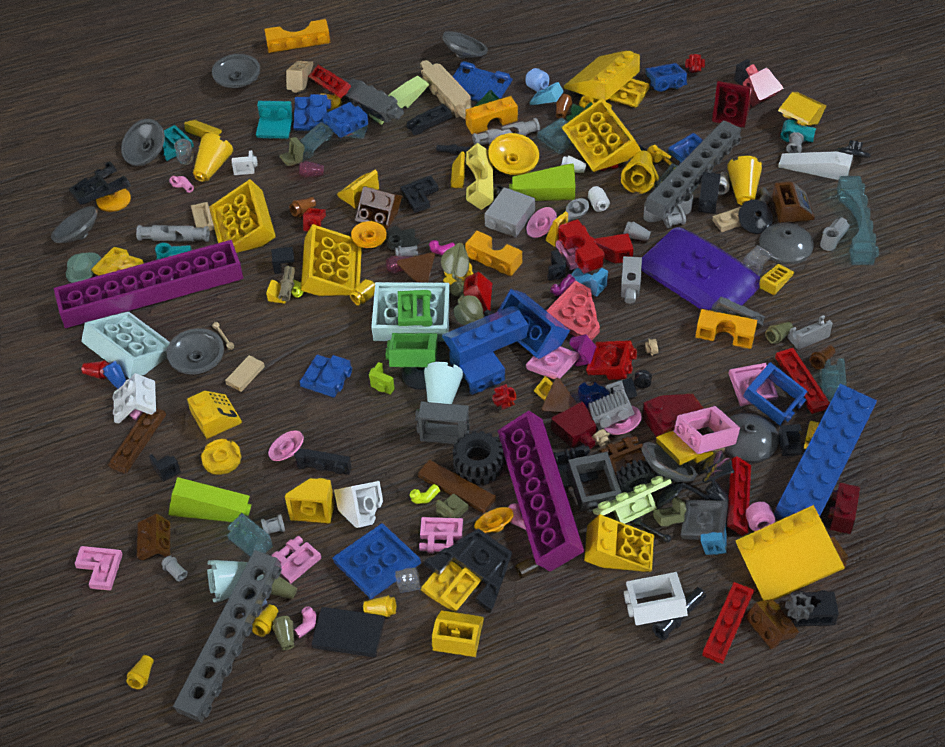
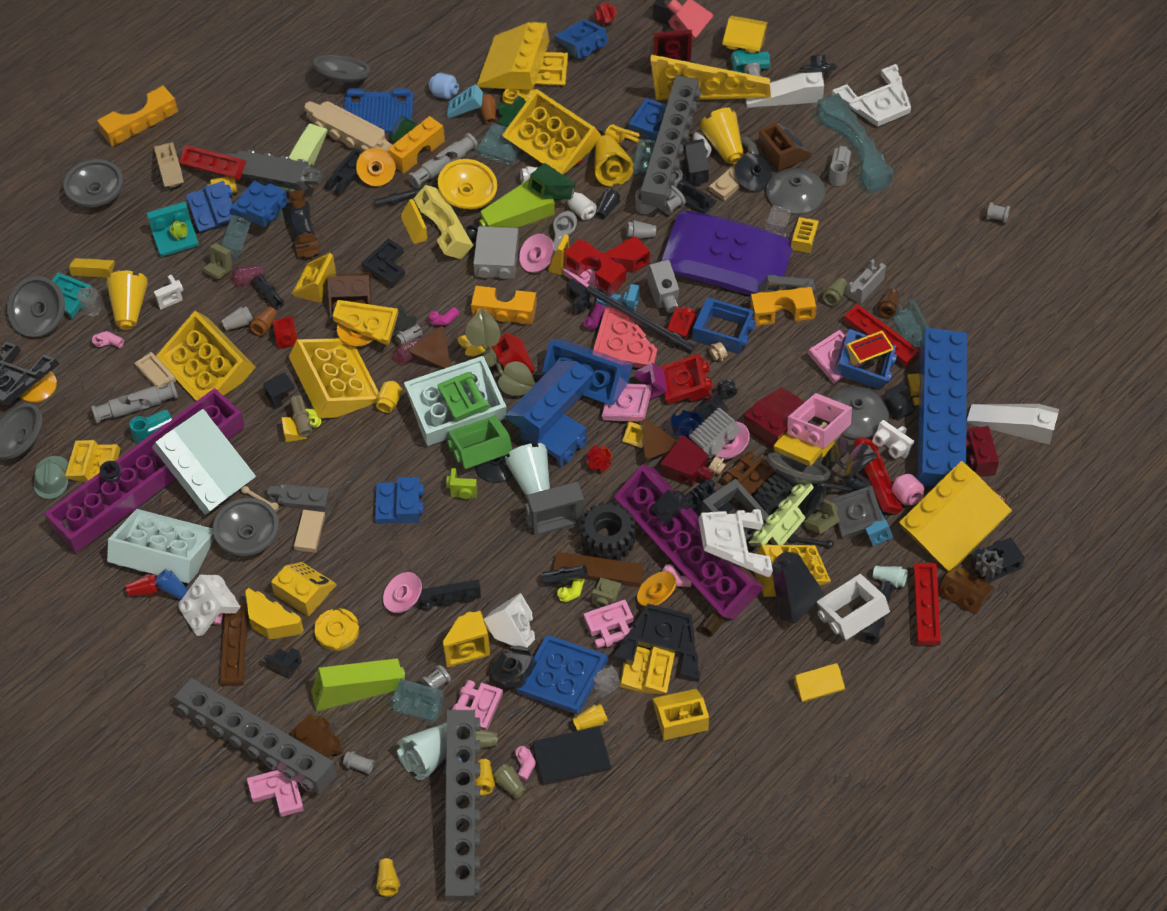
camera: 25 degrees left, 5 degrees up
(105, 516) = (205, 704): none -> dark grey brick
(115, 270) = (114, 476): none -> black bush
(174, 428) = (270, 617): none -> yellow slope
(191, 290) = (203, 461): none -> light aqua slope
(253, 344) = (300, 496): none -> dark grey hinge
(277, 121) = (178, 230): none -> lime plate
(283, 198) = (238, 318): none -> light grey cone
(318, 187) = (268, 292): none -> black pin
(338, 539) = (522, 664): none -> black plate
(371, 145) = (300, 223): none -> piece
(378, 228) = (367, 319): none -> yellow wing
(423, 479) = (564, 574): none -> black pin
(451, 114) = (379, 158): none -> light orange dish
(535, 451) = (670, 505): none -> black bracket
(566, 494) = (725, 538): none -> white wing
(577, 171) = (550, 183): none -> dark green slope
(595, 654) = (819, 682): none -> yellow slope
(609, 560) = (794, 586): none -> black slope
(619, 323) = (674, 338): none -> black bar
(622, 202) = (608, 201): none -> black cone
(633, 312) = (682, 321): none -> red bracket
(674, 316) = (728, 312): none -> blue window
(697, 221) = (696, 198): none -> black hinge
(711, 586) = (894, 574): none -> light aqua cone
(753, 135) = (713, 81): none -> yellow wing
(770, 470) = (895, 439): none -> white hips
(780, 383) = (868, 347): none -> red slope
(896, 197) = (881, 104): none -> white wing
(898, 495) = (1021, 420): none -> white wedge

